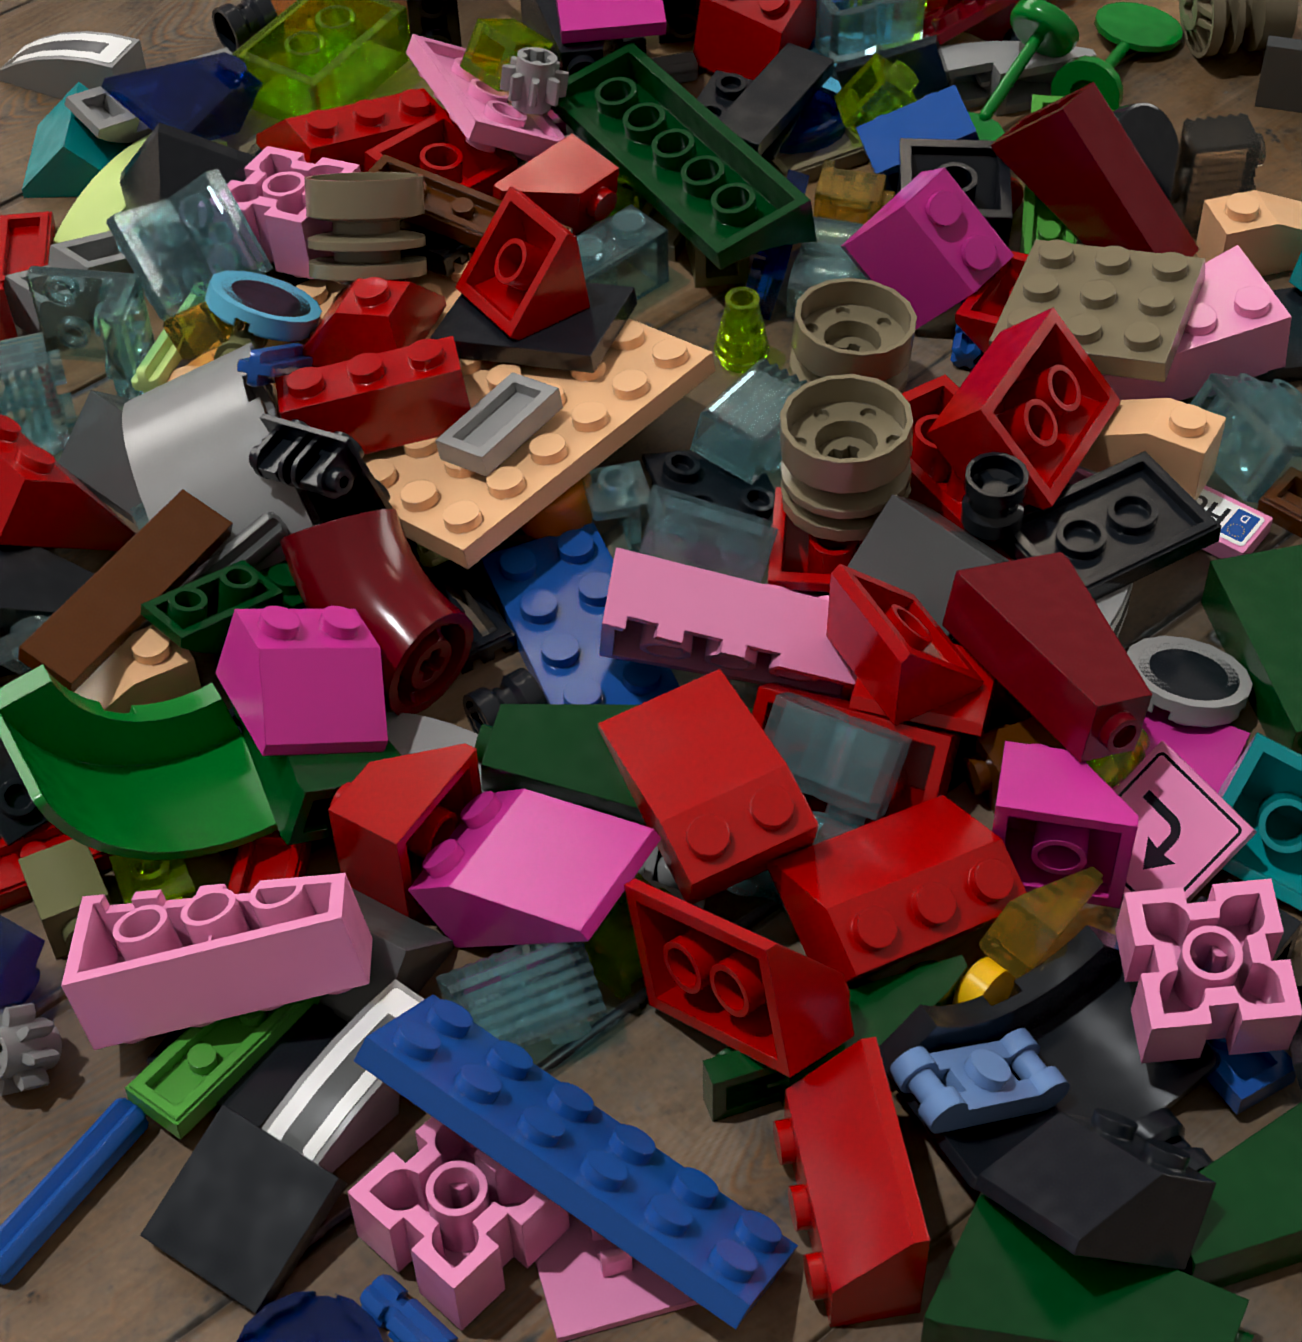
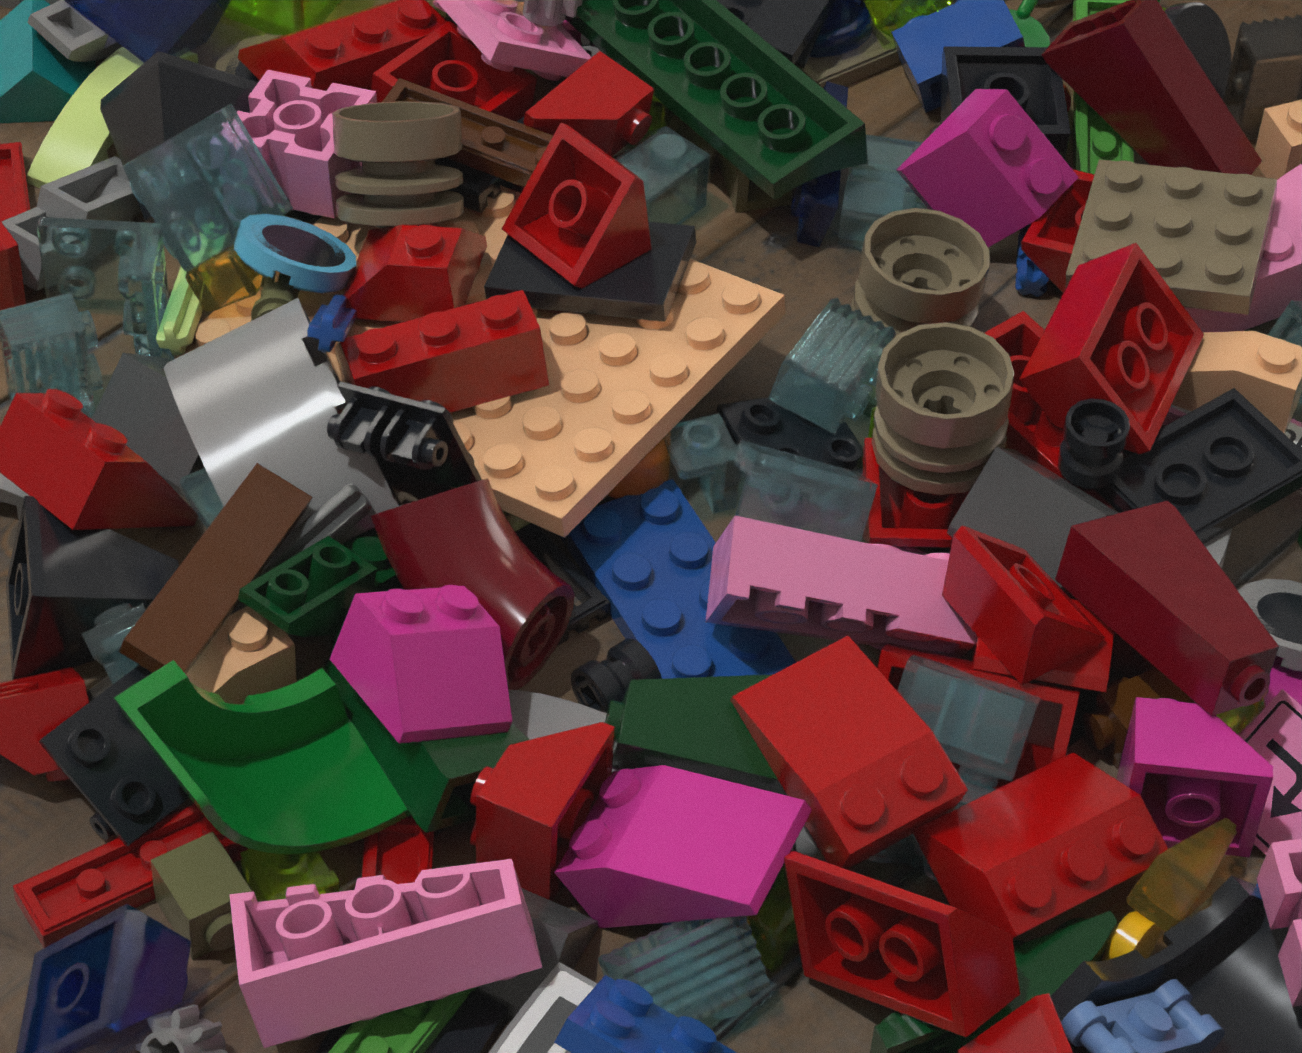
camera: 10 degrees left, 0 degrees up
(499, 424) = (577, 381): light grey tile -> none
(742, 332) = (798, 265): clear neon green cone -> none
(850, 194) = (896, 108): clear yellow brick -> none

